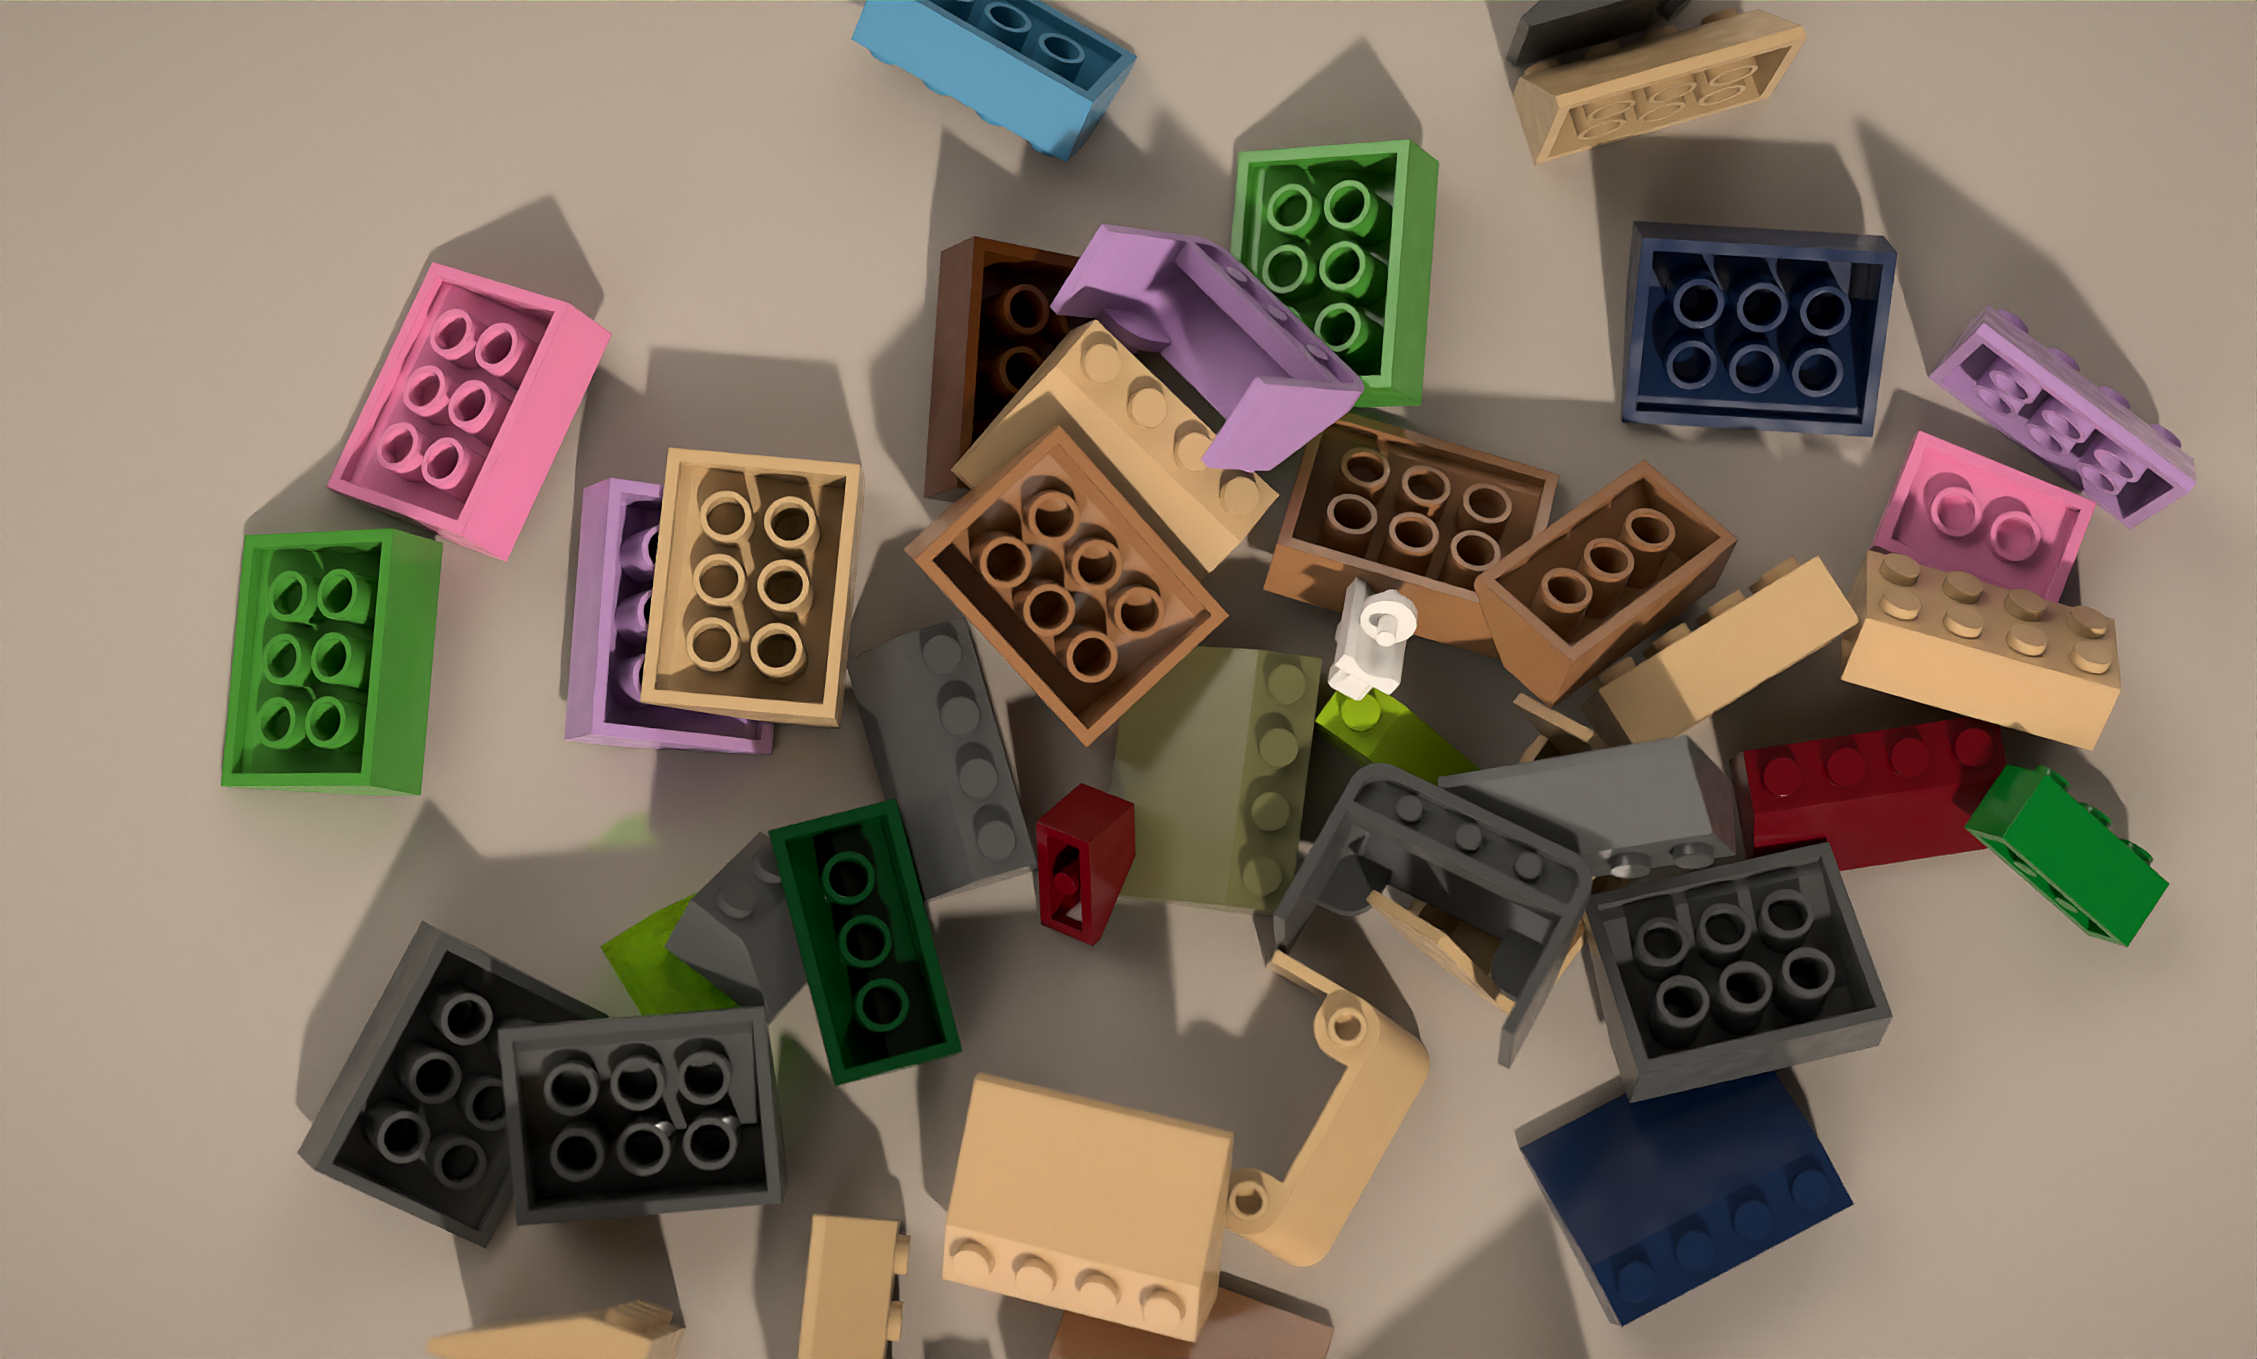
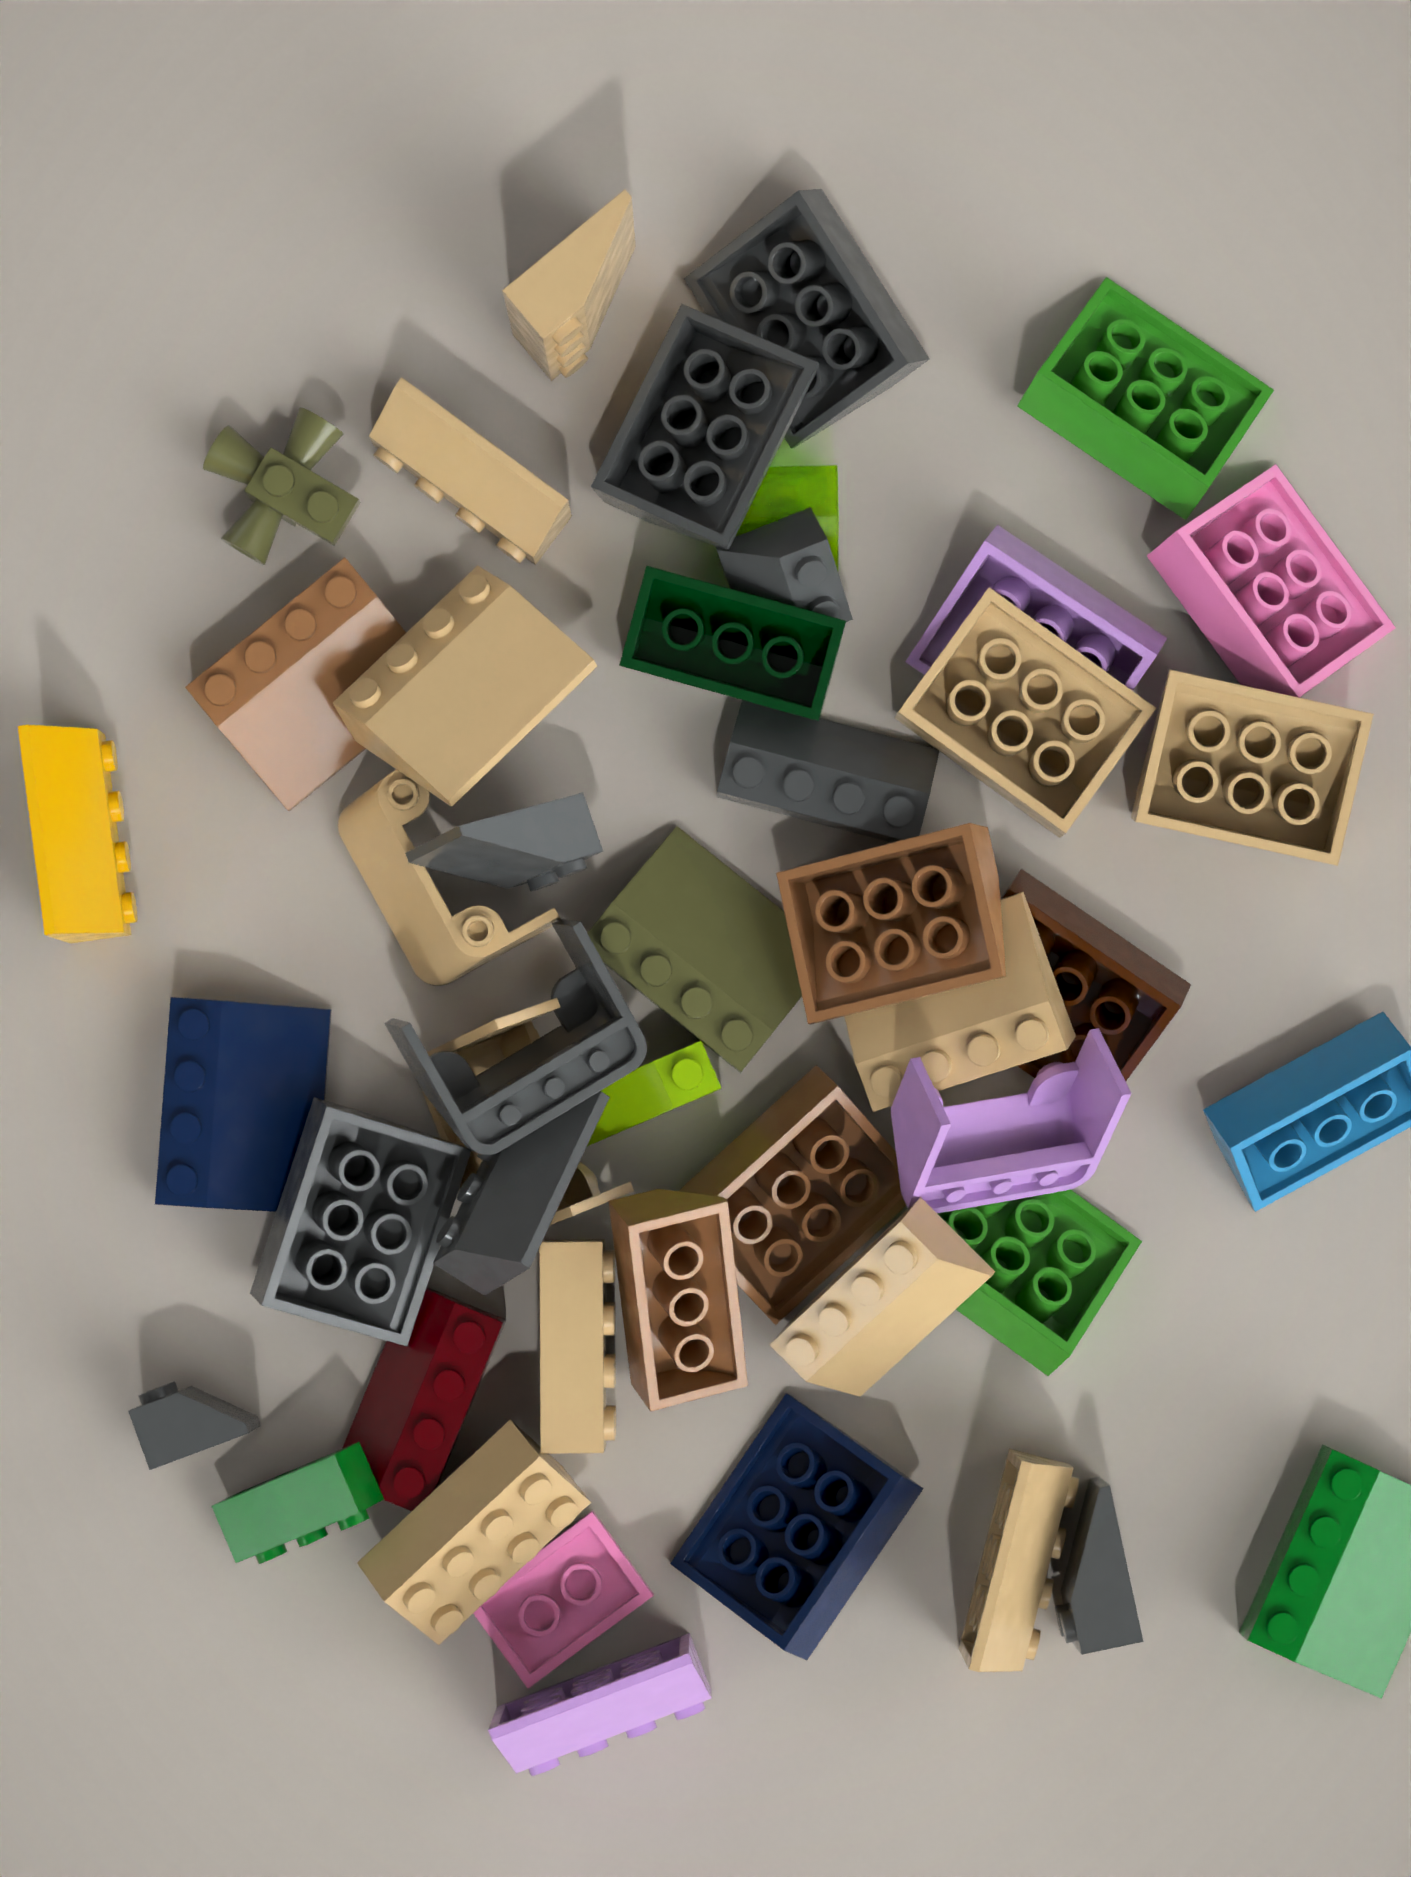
camera: 125 degrees right, 5 degrees up
(674, 313) = (1252, 767): none -> tan slope
(1084, 860) = (701, 828): dark red slope -> none
(1223, 1037) = (517, 846): none -> dark grey slope
(1371, 640) = (731, 1108): white hips -> none
(1473, 368) = (882, 1303): none -> tan slope
(2059, 1023) = (185, 1422): none -> dark grey slope

